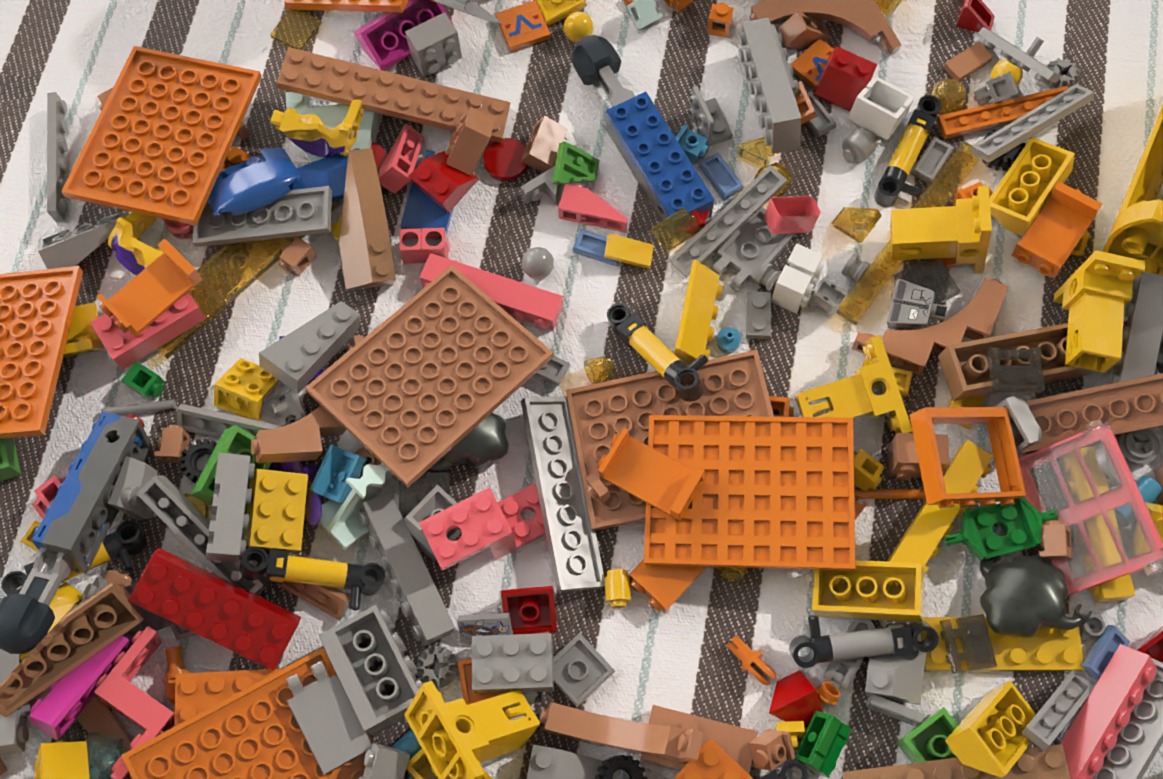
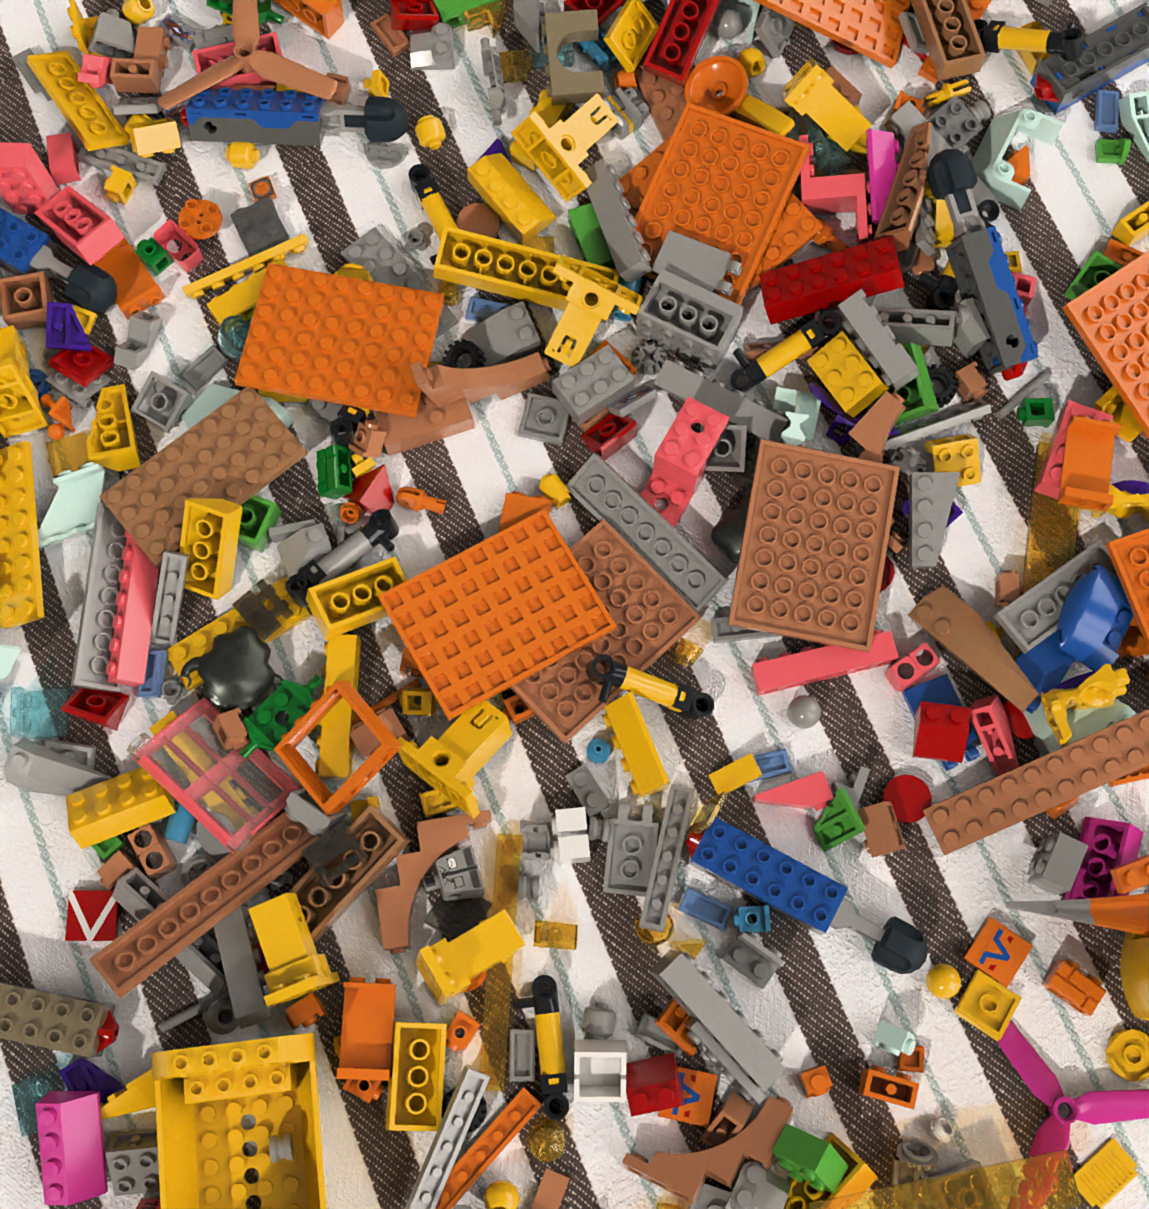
camera: 145 degrees right, 5 degrees up
(334, 471) = (825, 430): dark azure bracket -> none
(469, 140) = (945, 778): nougat brick -> none
(597, 488) = (618, 545): nougat plate -> none
(650, 475) = (582, 576): orange panel -> none
(789, 208) = (630, 898): coral piece -> none
(999, 87) = (499, 1171): light grey plate -> none

